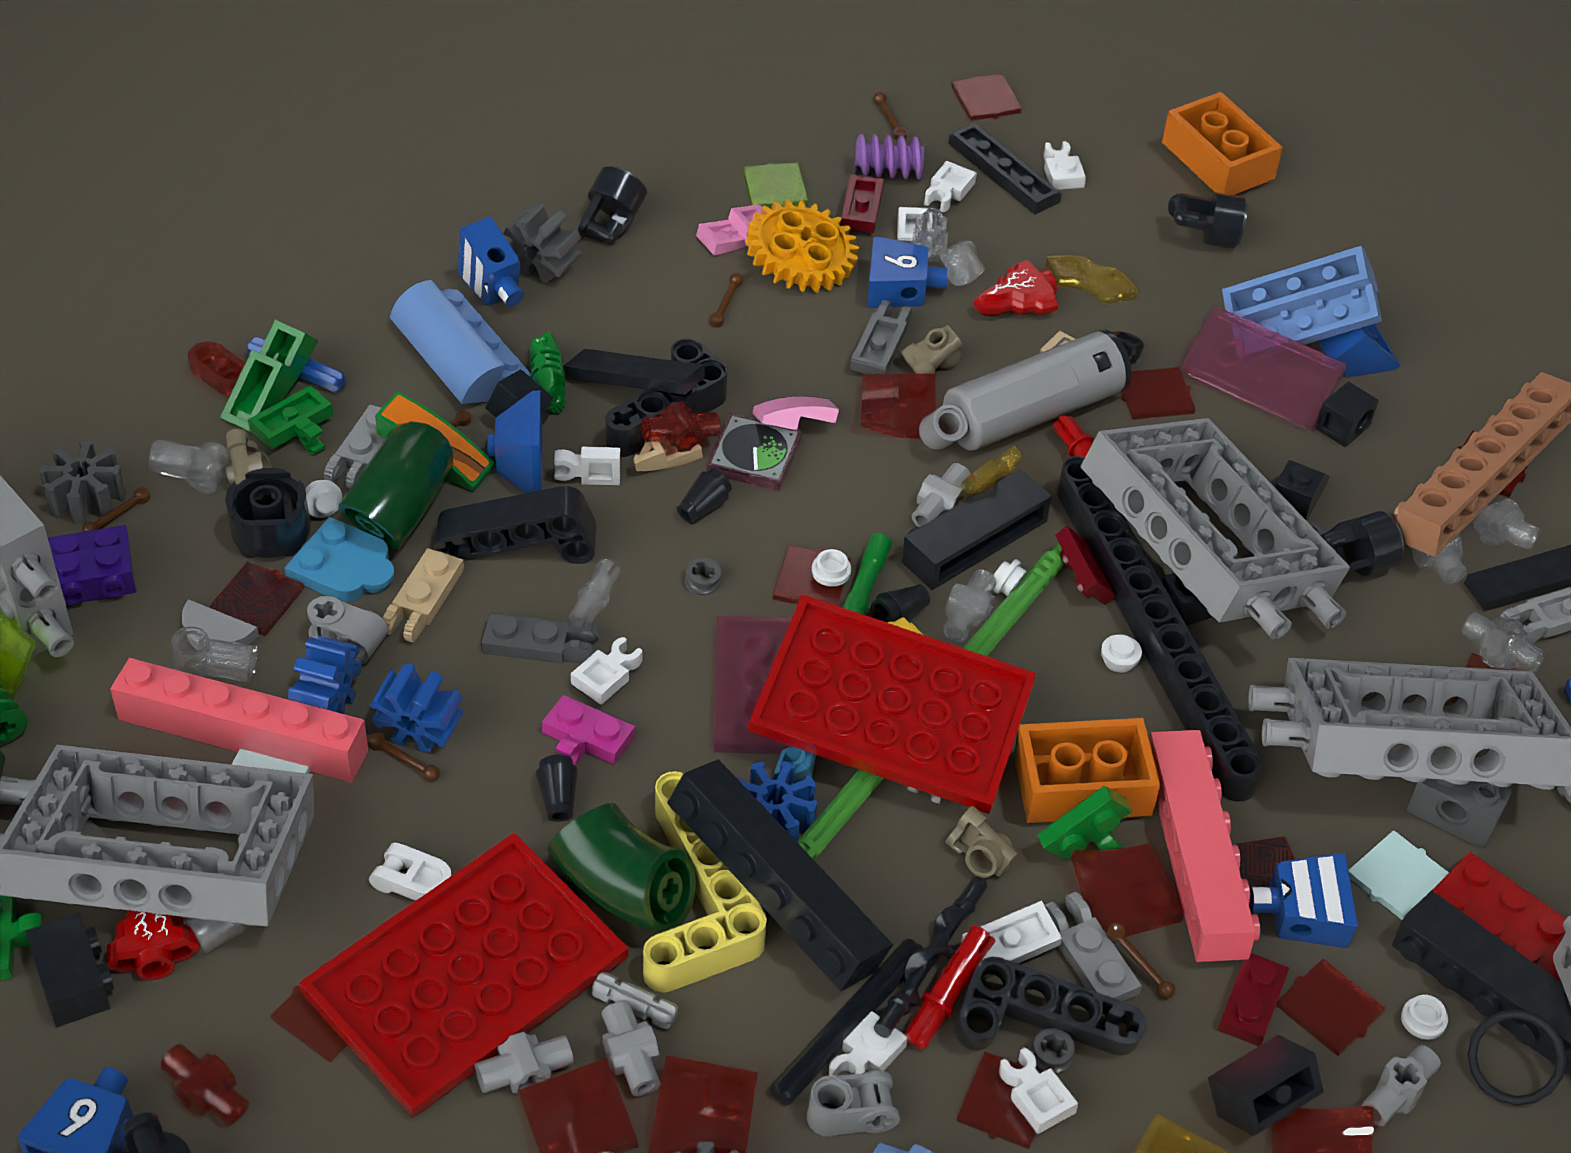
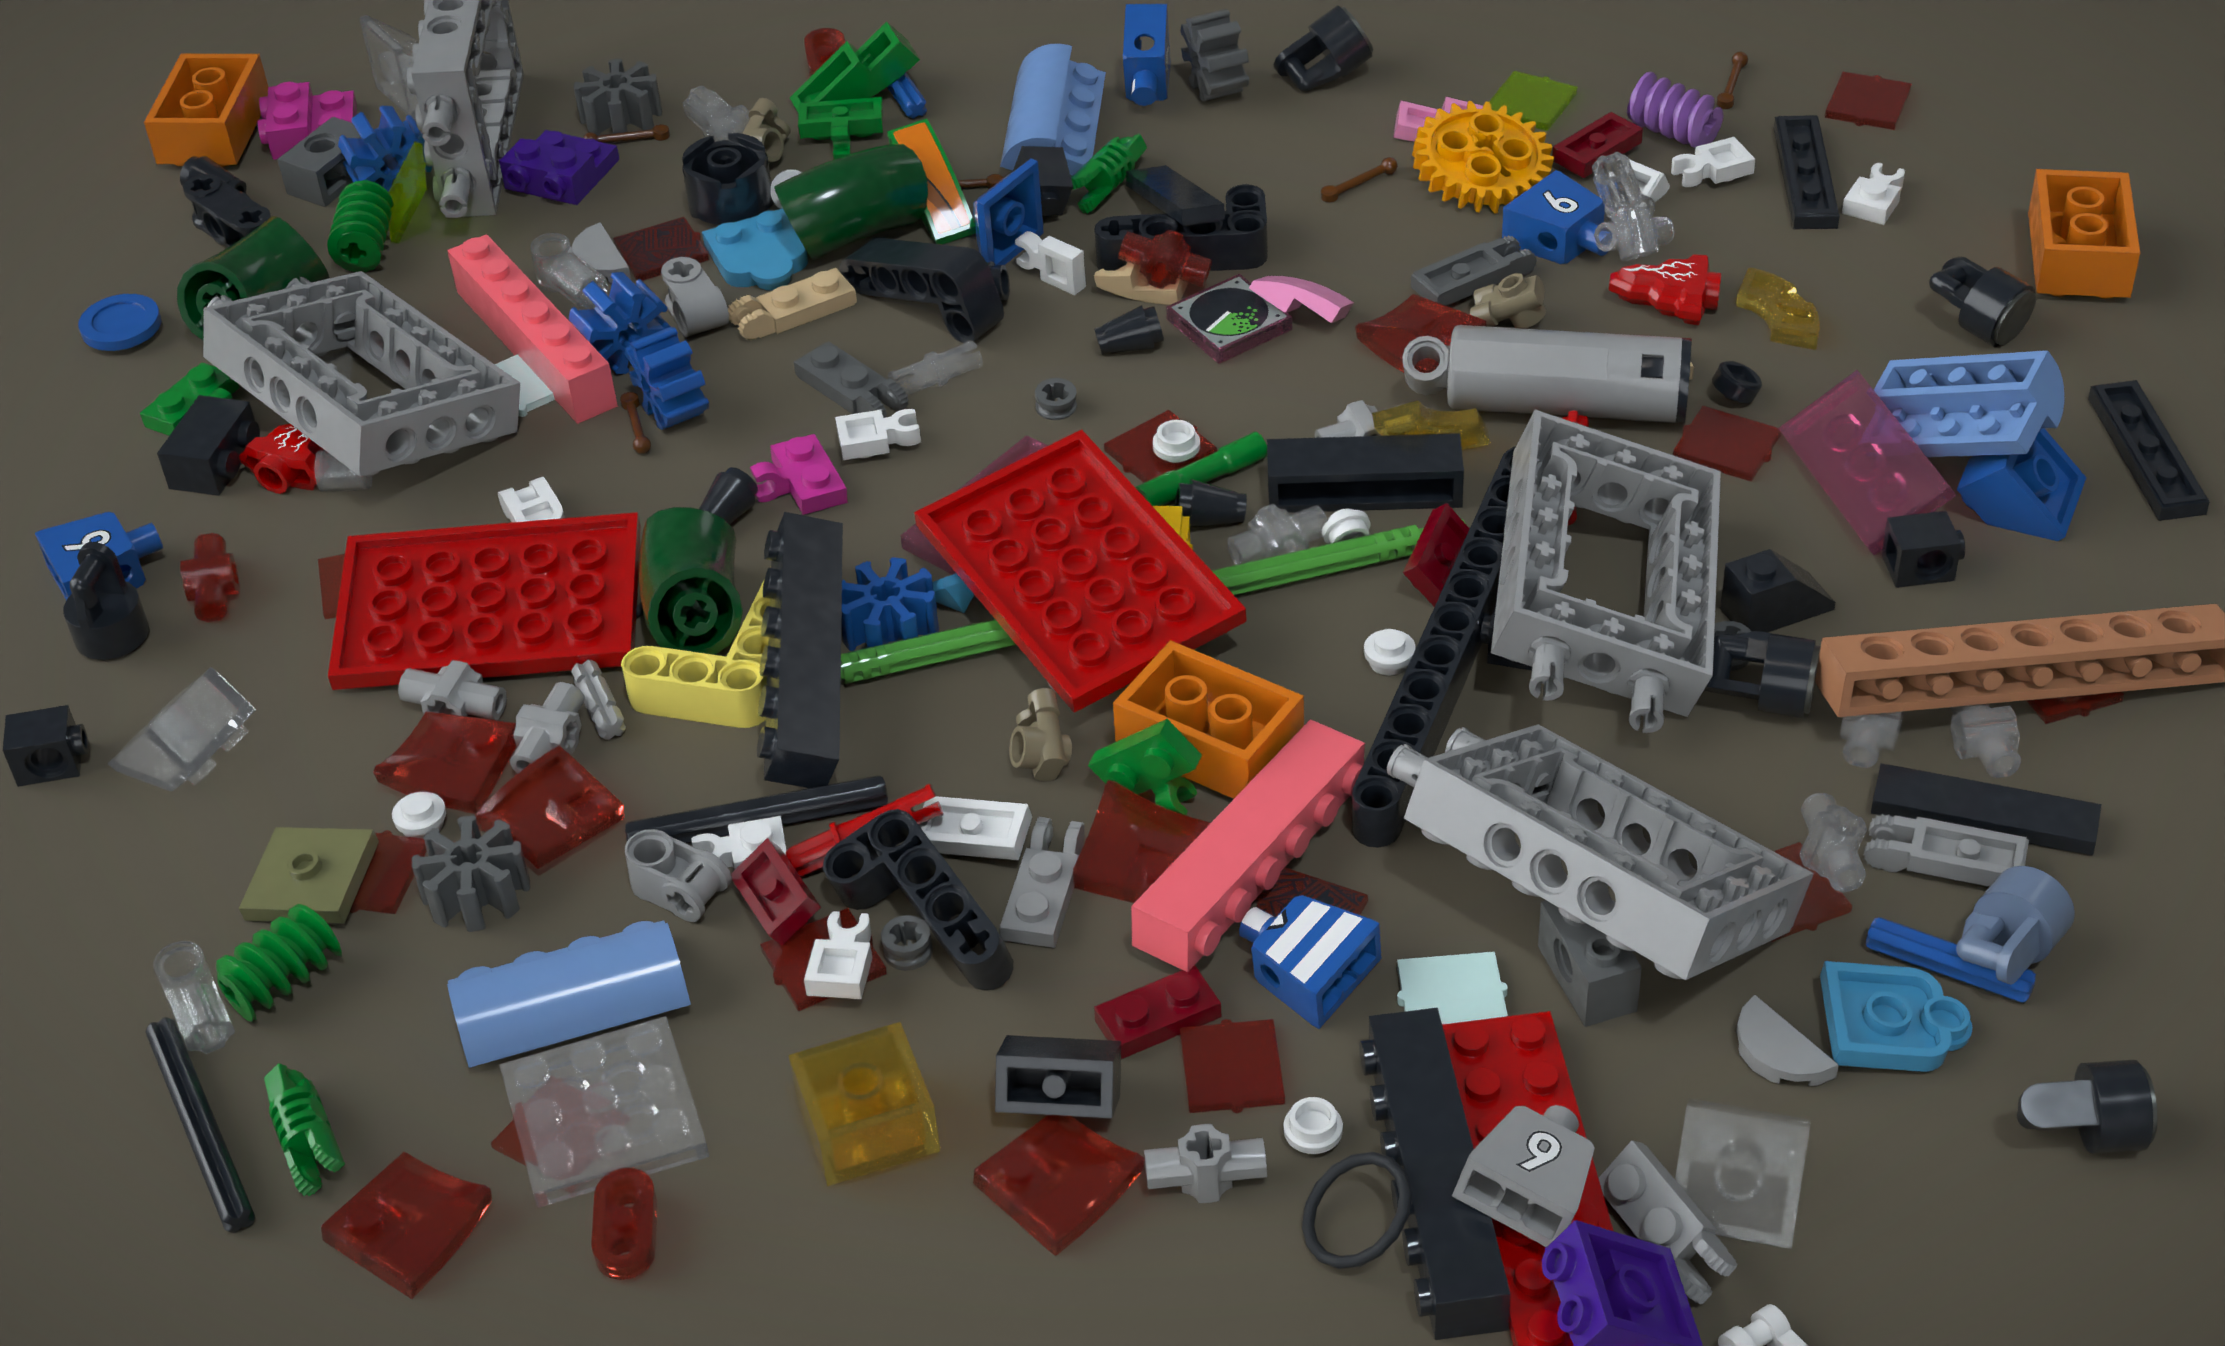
camera: 45 degrees right, 5 degrees down
(923, 959) = (871, 796): black piece -> none
(937, 1070) = (775, 891): none -> dark red plate
(1116, 934) = (1079, 878): reddish brown hinge -> none
(1400, 289) = (2148, 450): none -> black tile

